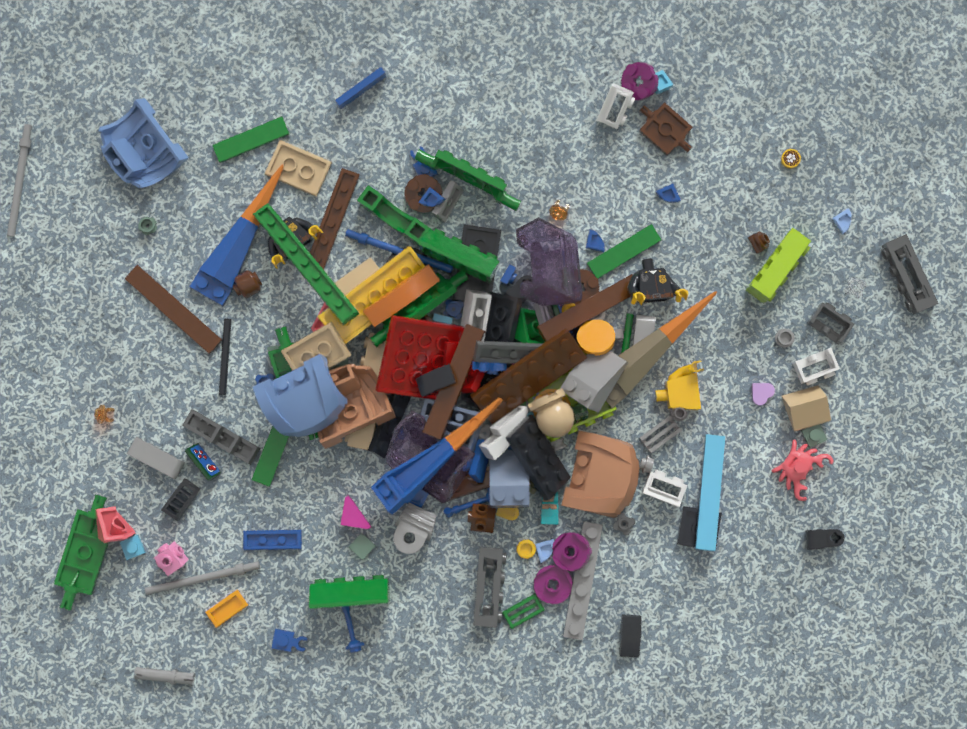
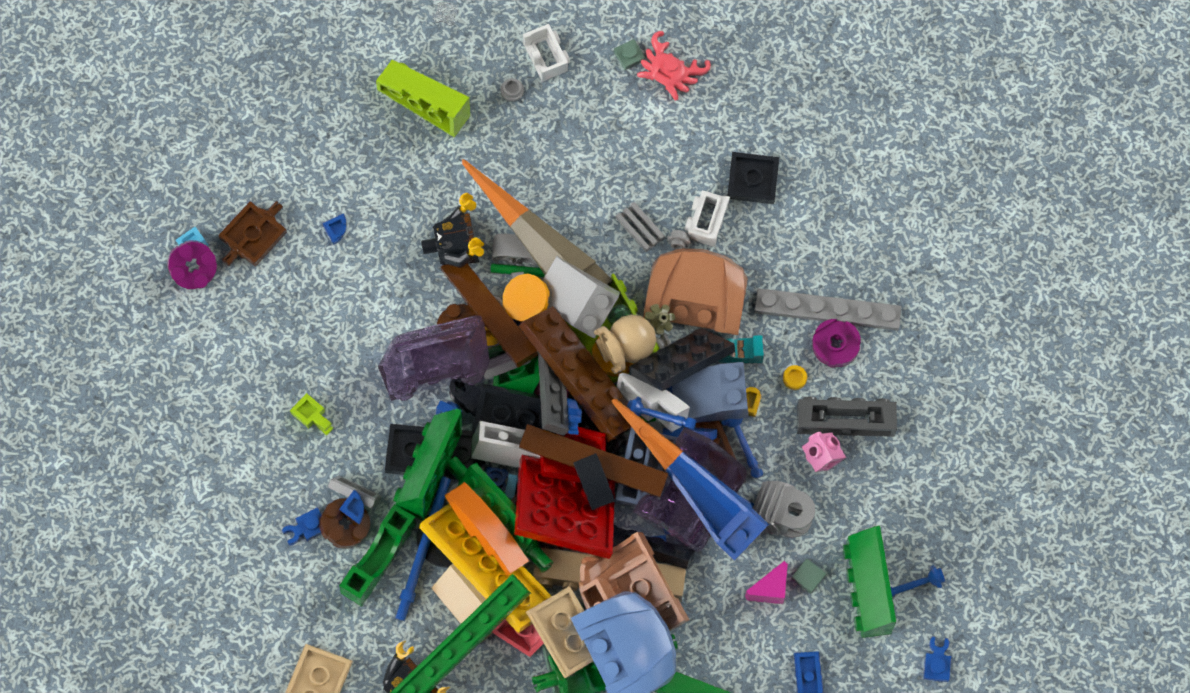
camera: 95 degrees left, 15 degrees down
(334, 216) = (373, 635): reddish brown tile -> none
(360, 88) = (205, 610): blue tile -> none
(460, 565) = (823, 451): none -> bright pink brick
(477, 177) = (319, 463): green plate -> none
(482, 518) = (761, 427): reddish brown brick -> none
(495, 417) = (637, 407): none -> blue piece
(508, 619) = (860, 360): green tile -> none
(514, 169) = (310, 412): none -> lime plate
(544, 550) = (794, 355): light blue tile -> none
(559, 212) = (364, 356): clear orange plate -> none
(561, 552) = (796, 334): magenta plate -> none
(575, 443) = (660, 318): none -> olive plant
(595, 242) = (400, 313): blue tile -> none
(602, 117) = (222, 297): white window -> none
(624, 251) = (411, 277): green tile -> none
(625, 529) = (756, 270): dark grey plate -> none
(630, 636) = (888, 249): black slope -> none
(681, 391) = (587, 201): yellow torso -> none
(710, 493) = (709, 164): medium azure tile -> none
(759, 241) = (393, 121): reddish brown plate -> none
(761, 392) = (581, 113): lavender tile -> none
(790, 158) = (286, 89): tile -> none
(807, 408) = (596, 61): tan slope -> none
(821, 538) = (754, 40): black piece -> none
(842, 319) = (486, 25): dark grey window -> none
(843, 220) = (363, 29): light blue tile -> none

